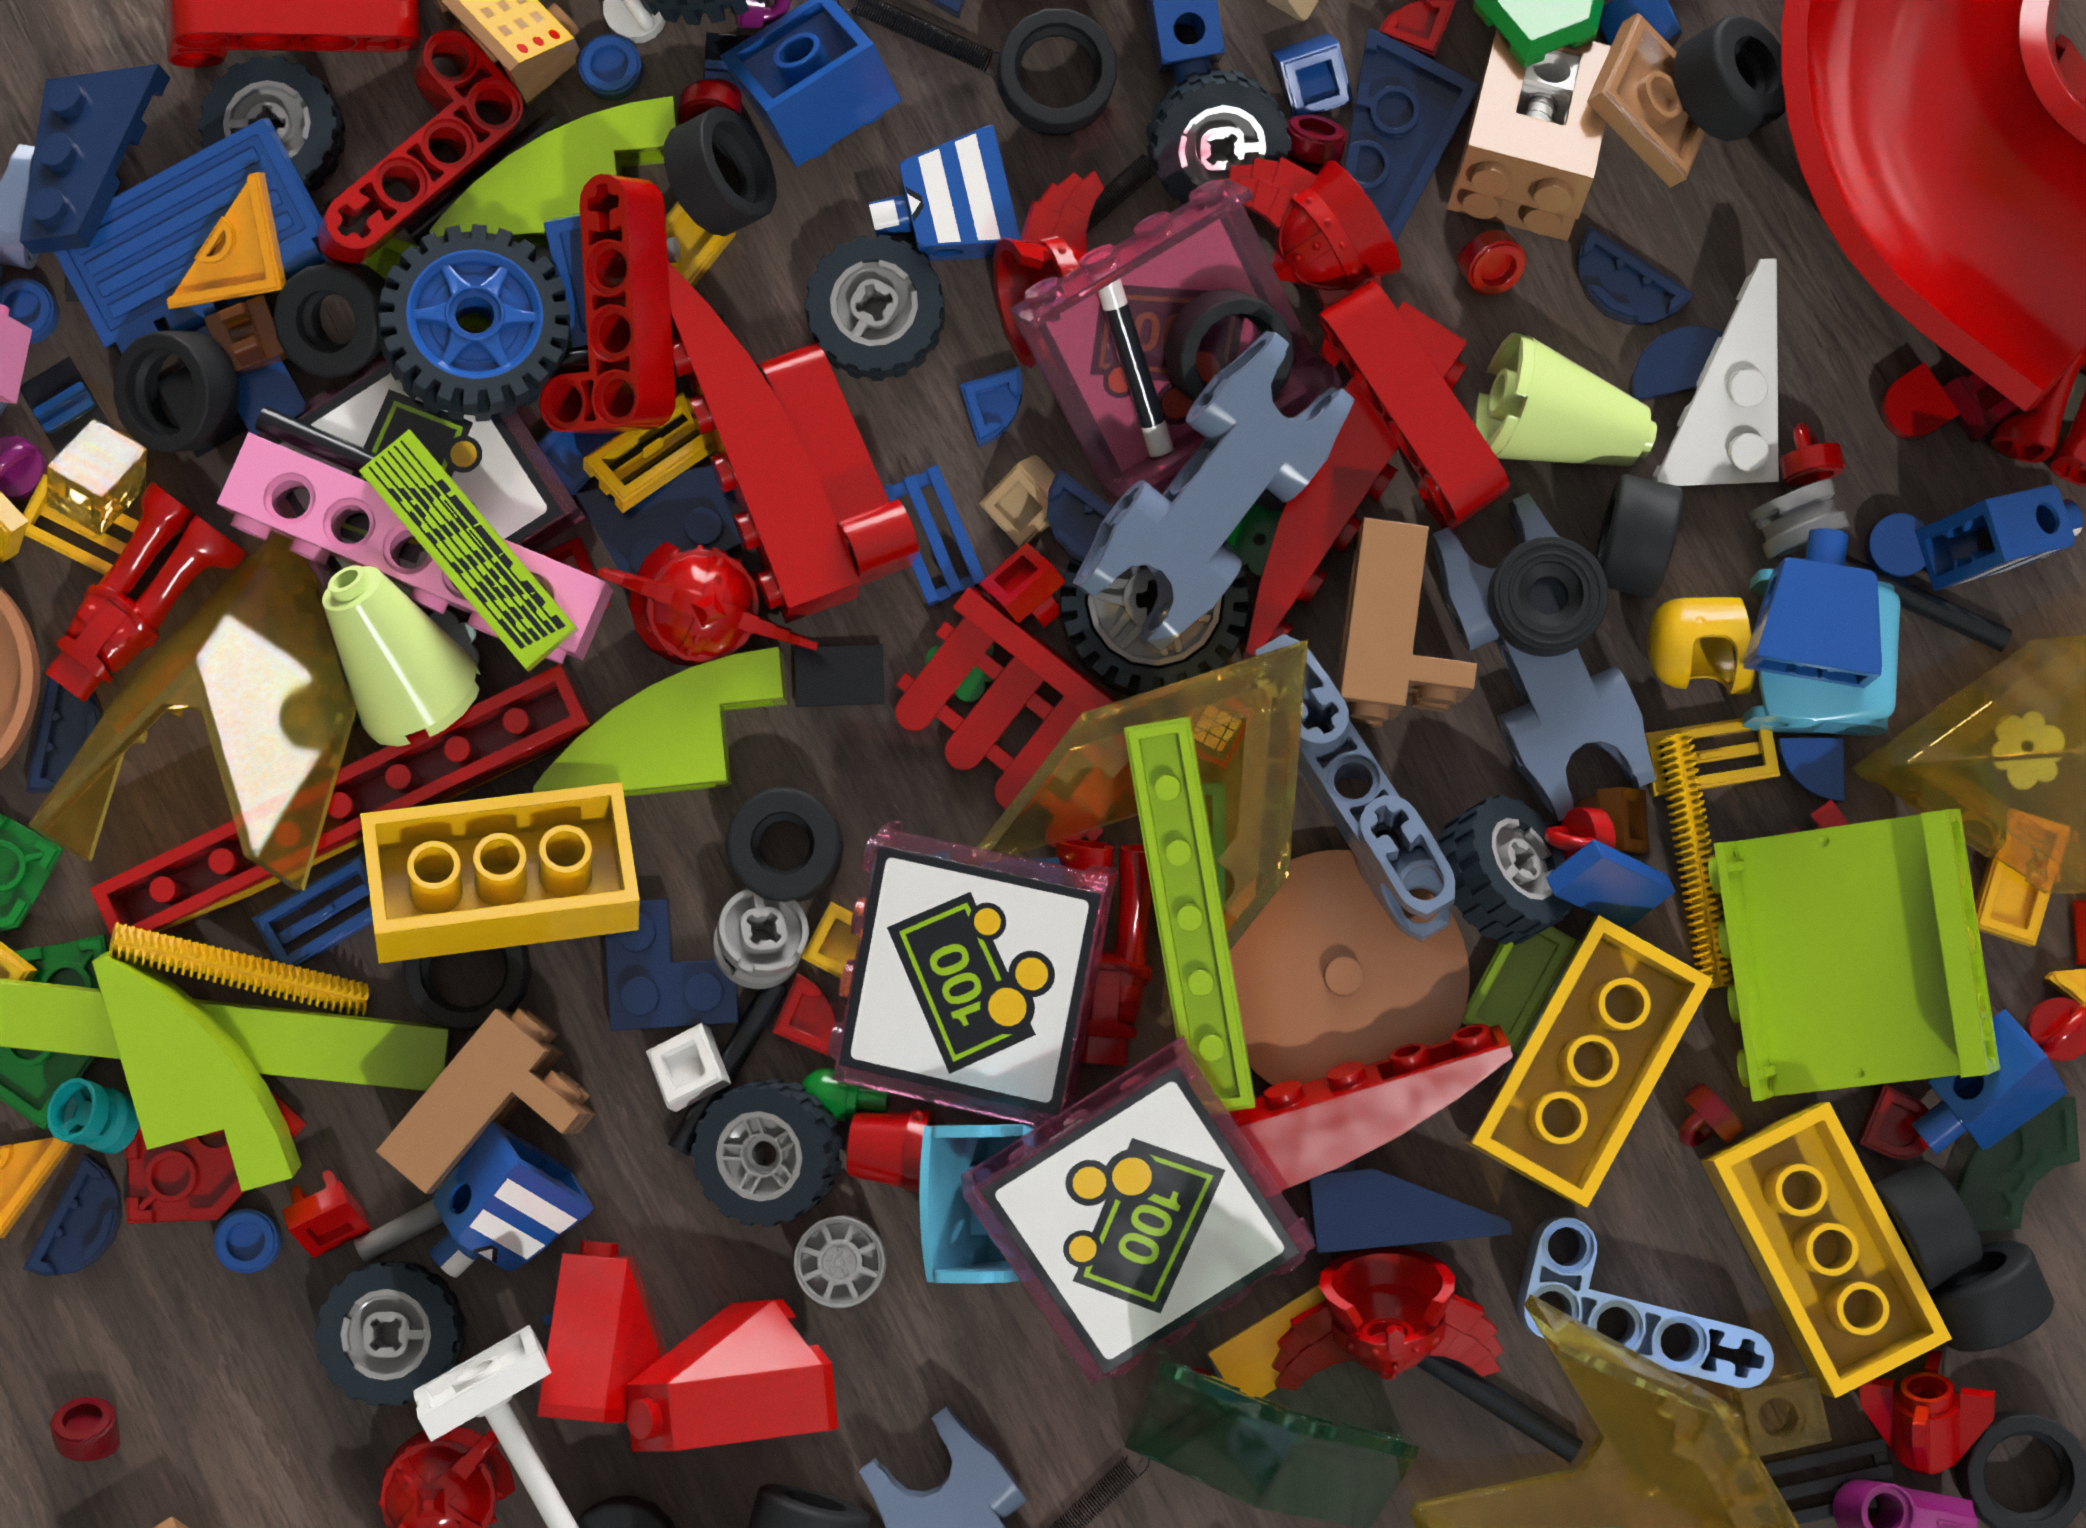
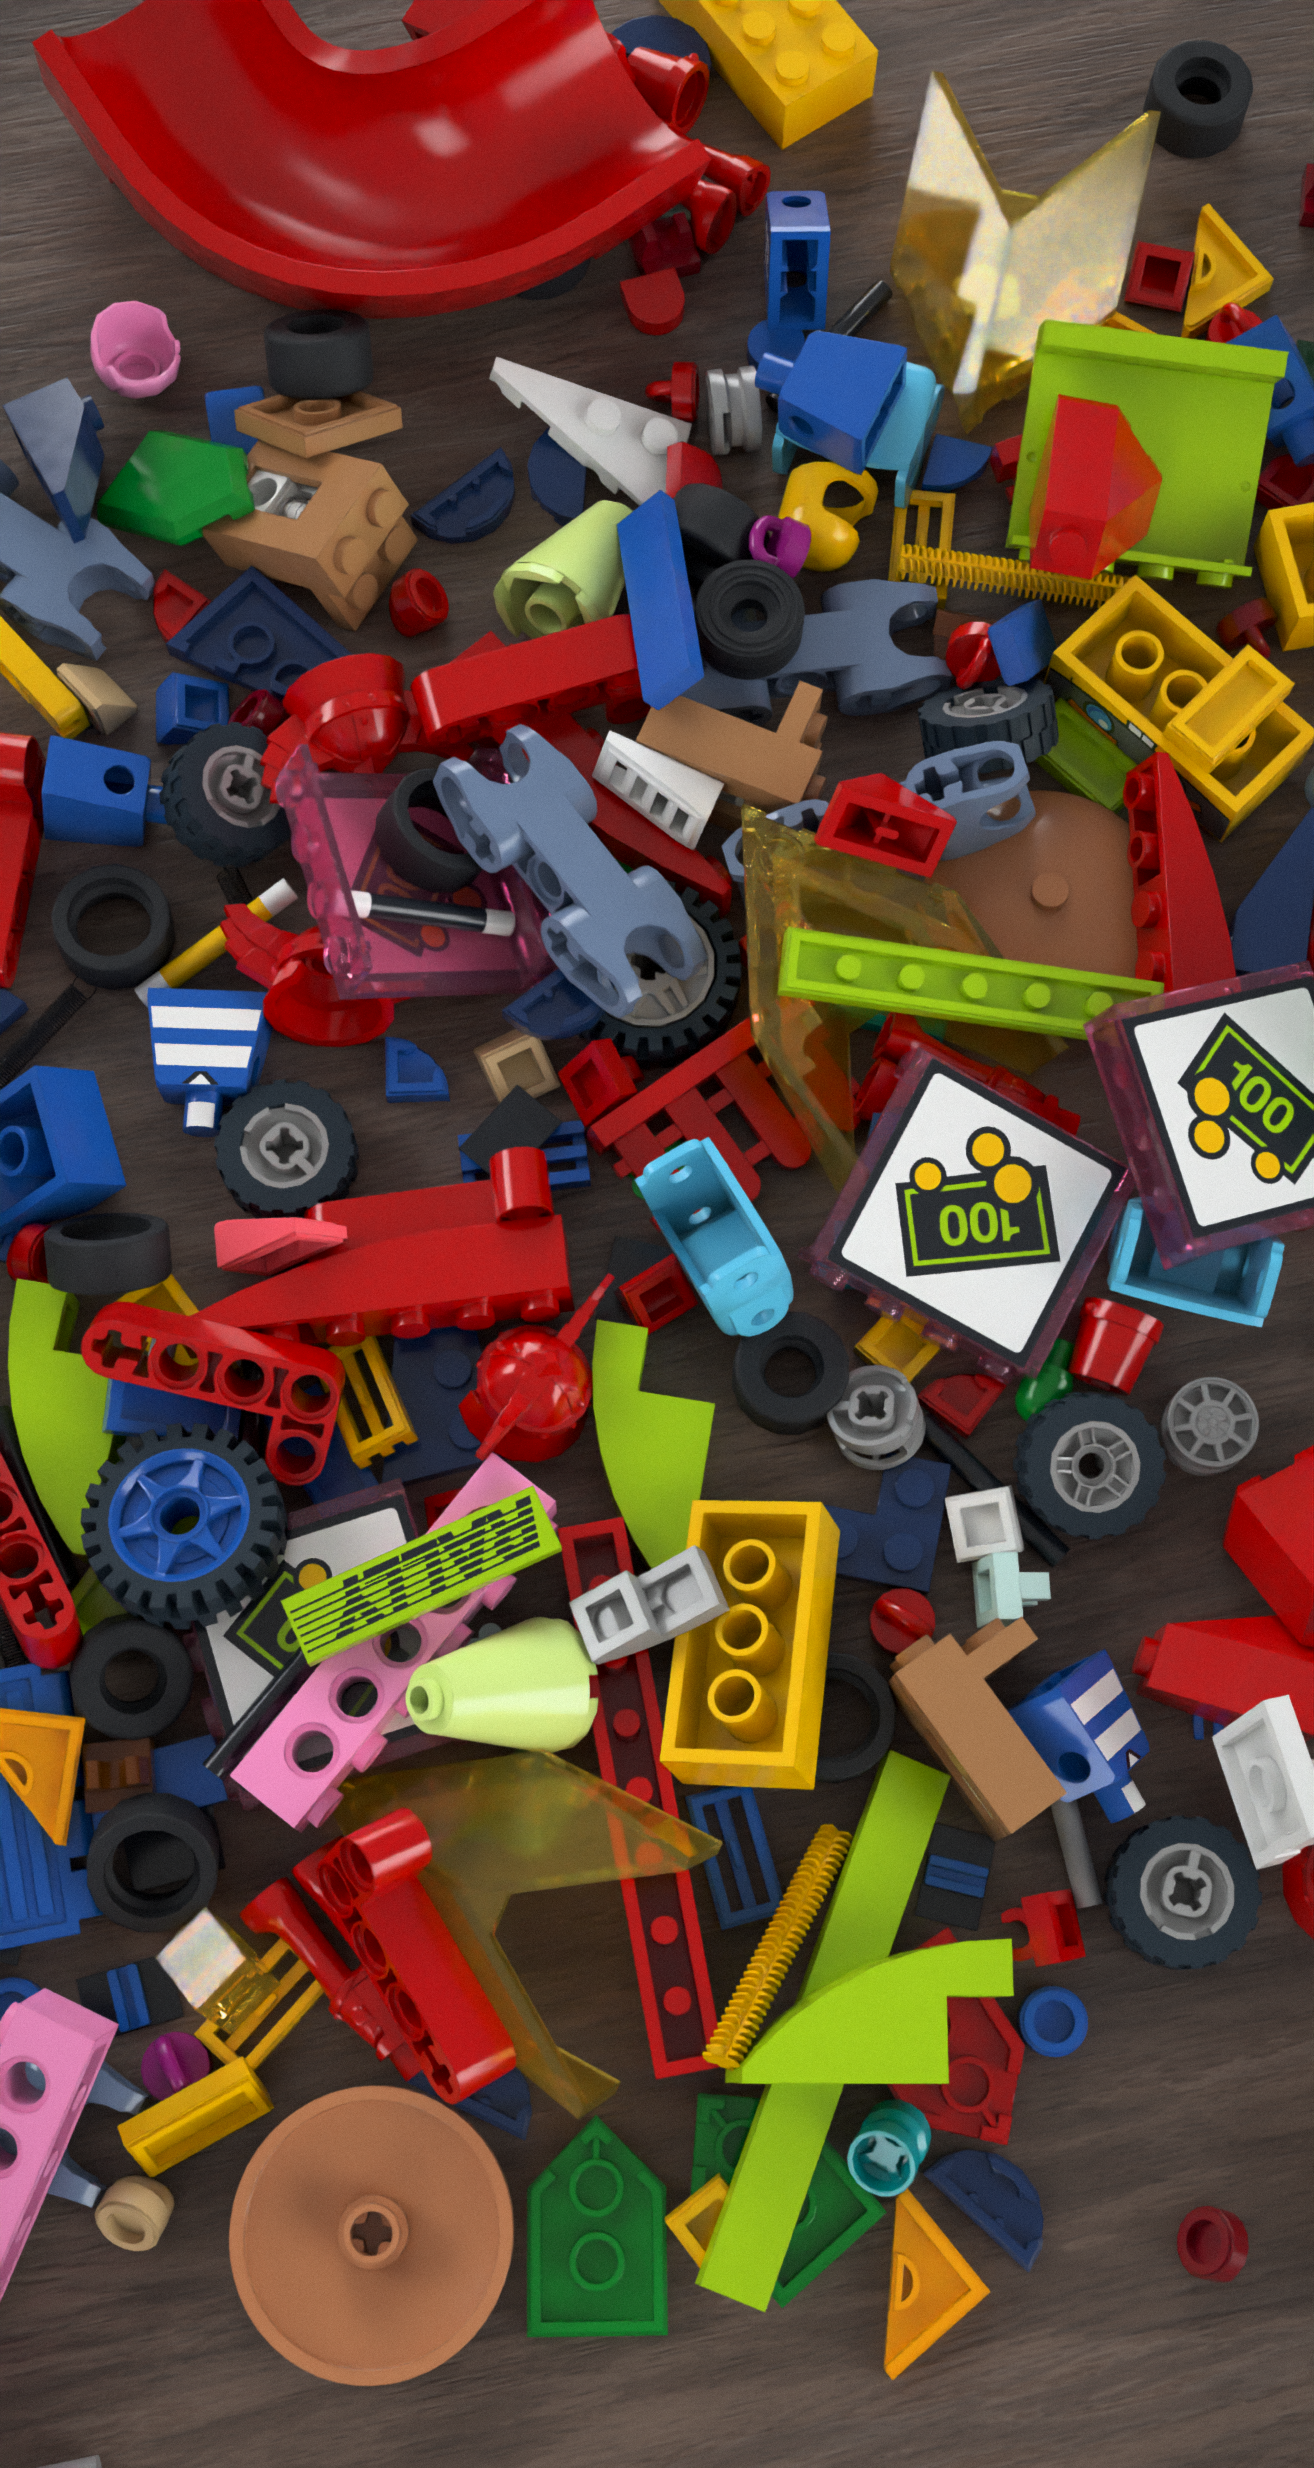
camera: 80 degrees left, 10 degrees down
(139, 646) = (412, 1956): none -> red beam
(355, 1120) = (955, 1877): none -> black piece
(502, 767) = (648, 1609): none -> light grey slope
(577, 1012) = (900, 1620): none -> red tile
(628, 1101) = (1004, 1590): none -> light aqua tile
(776, 317) = (272, 1243): none -> coral slope
(828, 697) = (657, 1295): none -> red slope
(874, 739) = (723, 1244): none -> medium azure piece
(950, 514) = (513, 1123): none -> black piece
(1059, 168) = (212, 945): none -> yellow bar
(1329, 785) = (885, 824): none -> red slope
(1330, 562) = (658, 787): none -> white slope
(1526, 499) = (659, 601): none -> blue tile
(1582, 1108) = (1228, 709): none -> yellow tile
(1637, 612) = (786, 546): none -> magenta tile
(1712, 499) = (688, 466): none -> red tile
(1776, 911) = (1090, 490): none -> red slope

